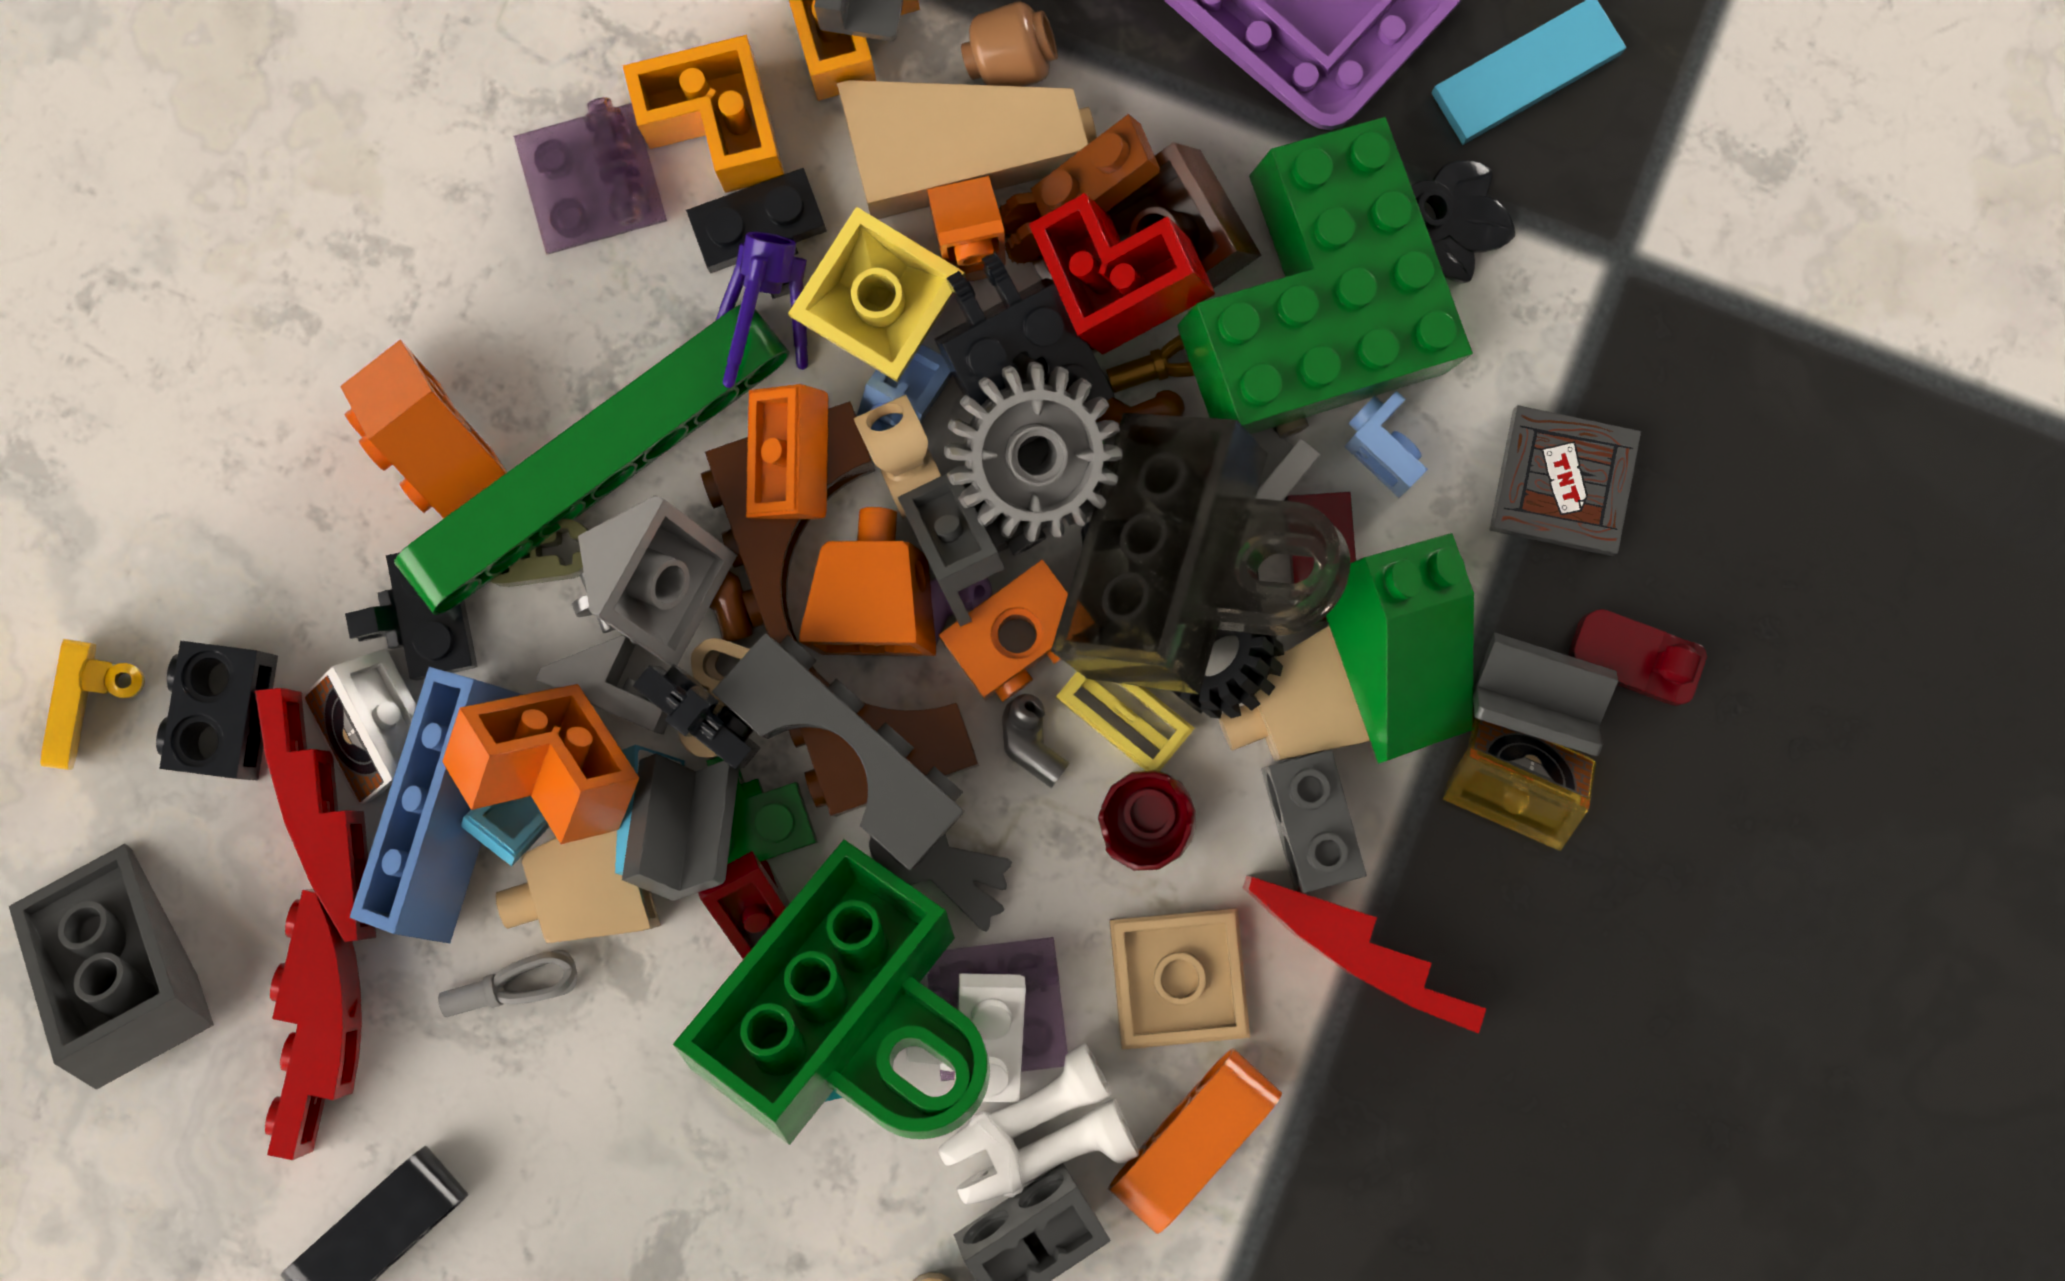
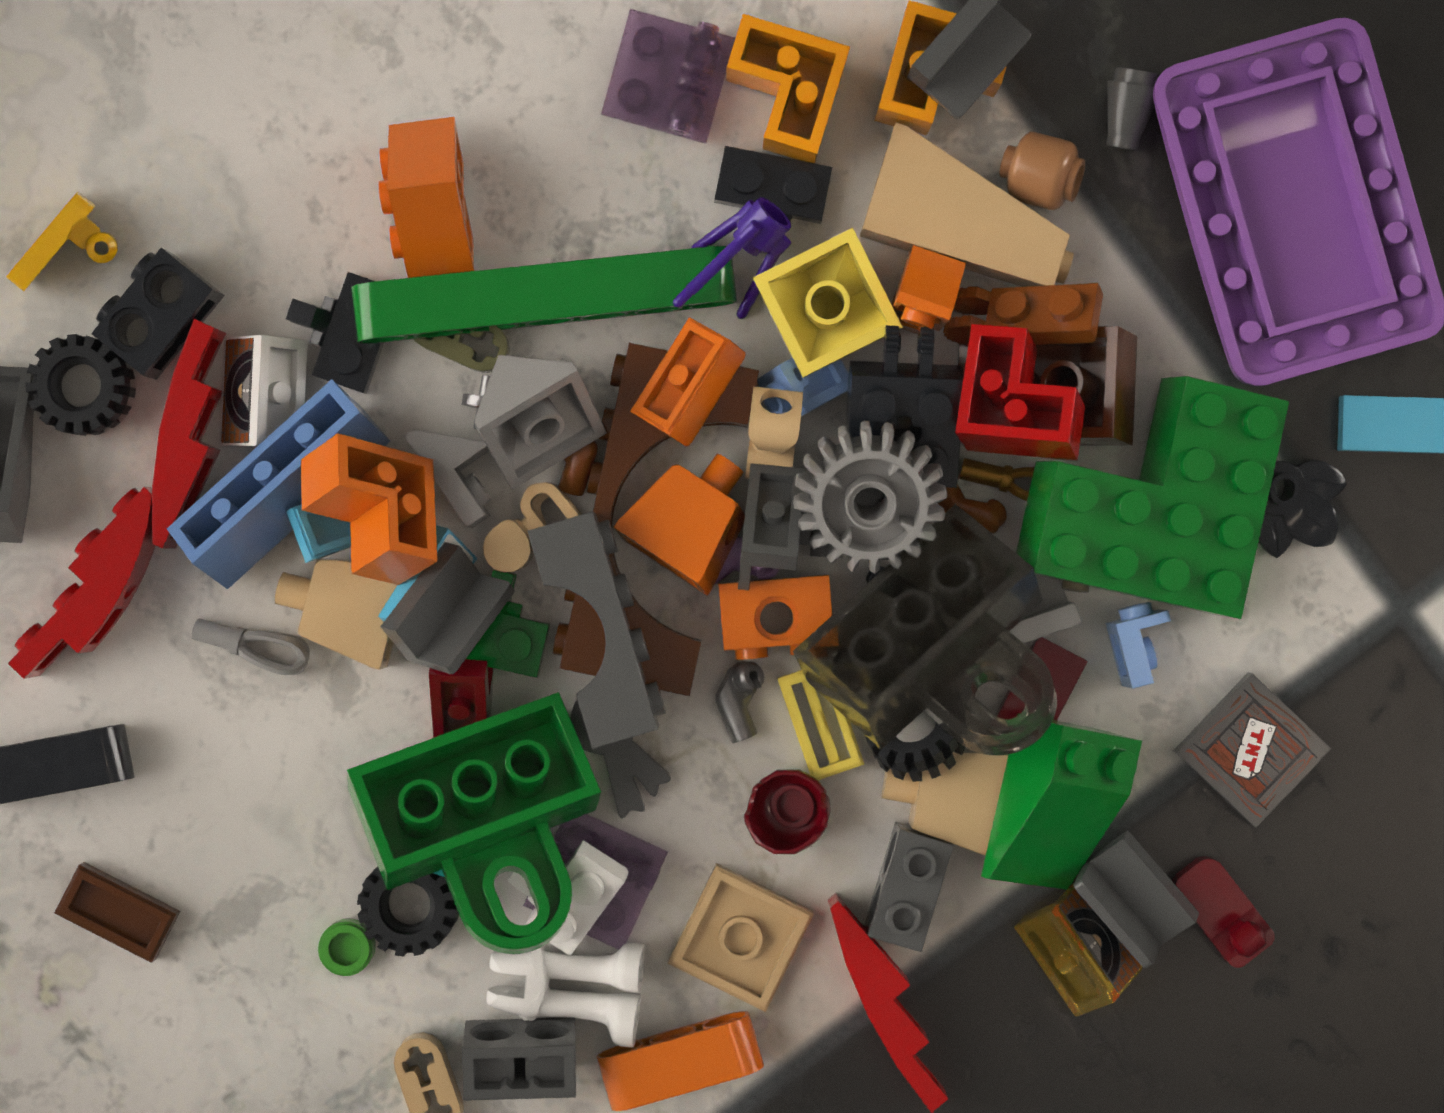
camera: 35 degrees right, 5 degrees up
(144, 830) = (48, 378): none -> black tyre
(693, 714) = (507, 537): black hinge -> none
(788, 1235) = (345, 947): none -> bright green tile
(833, 1190) = (401, 936): none -> black tyre

